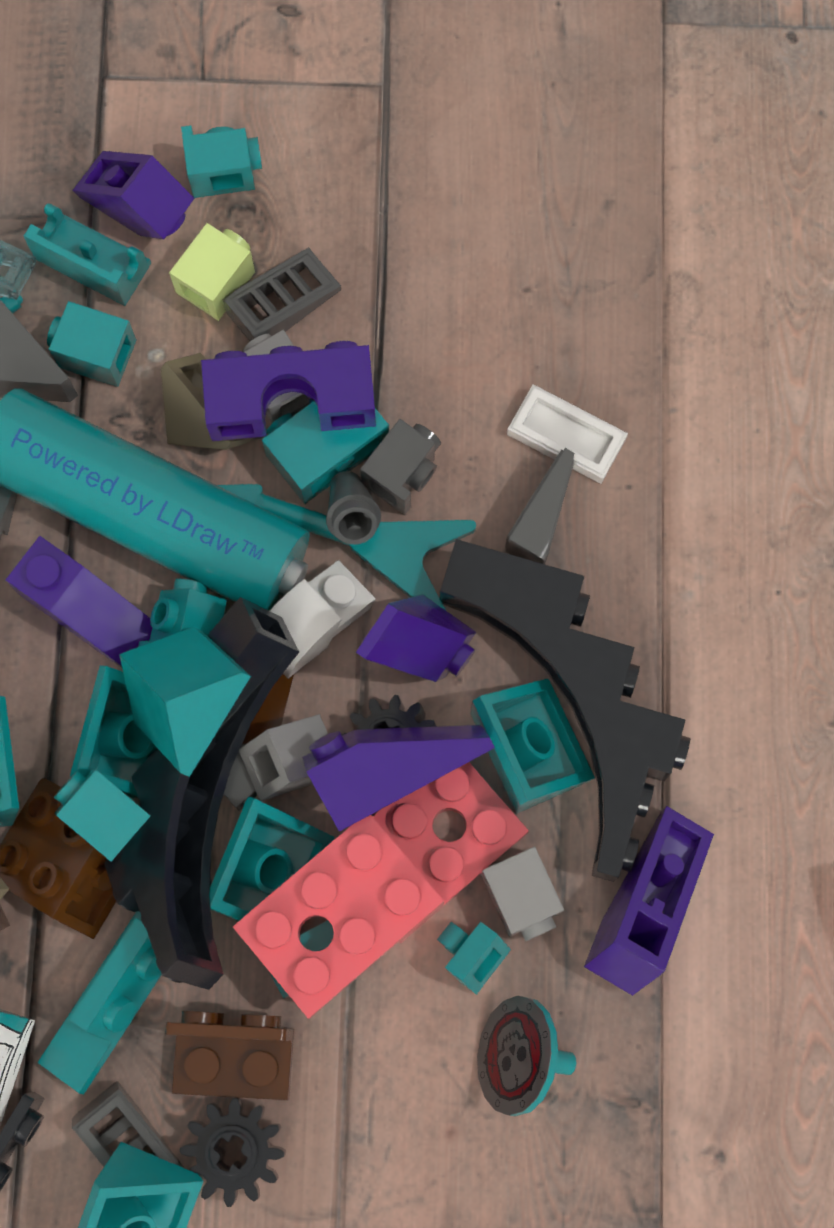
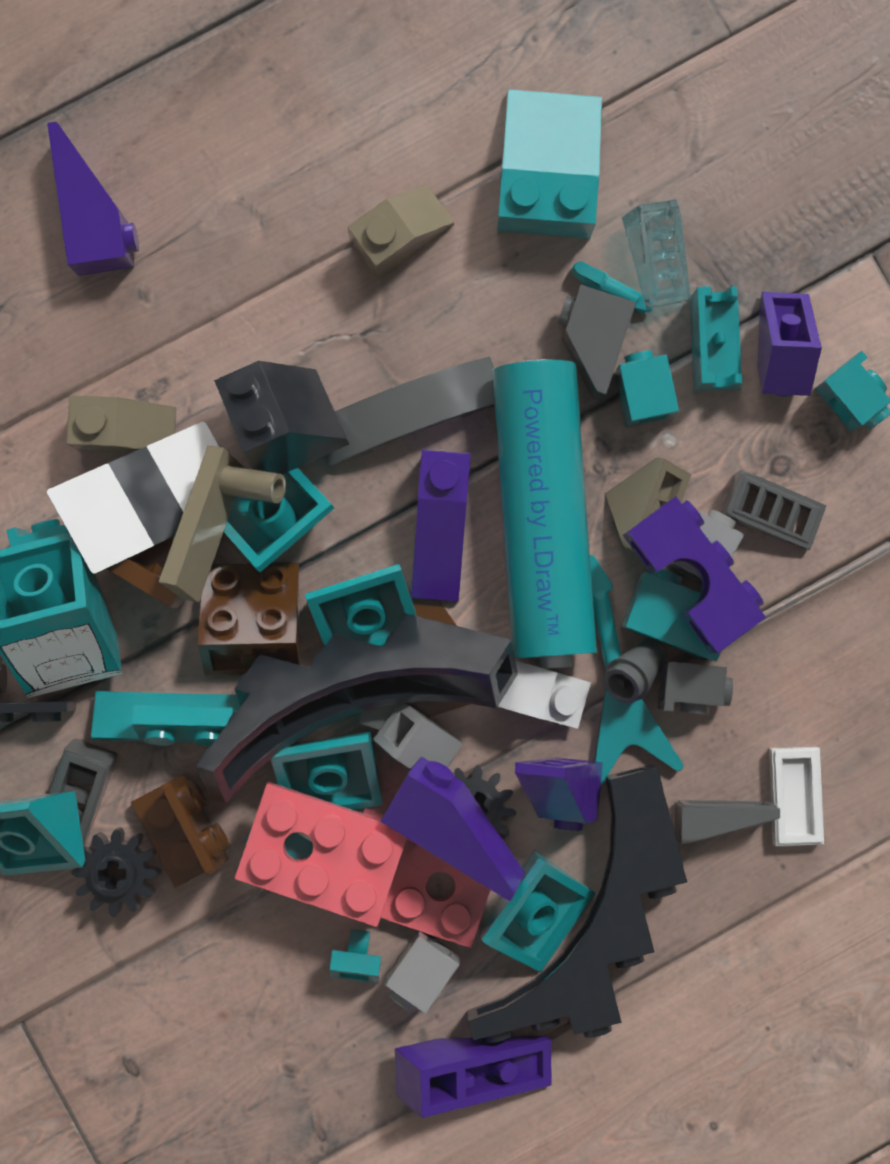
camera: 55 degrees right, 10 degrees up
(99, 812) = (289, 637): teal brick -> none
(181, 693) = (413, 644): teal slope -> none
(185, 608) = (472, 599): teal brick -> none
(212, 269) = (762, 445): yellowish green brick -> none
(520, 1056) = (301, 1040): shield -> none

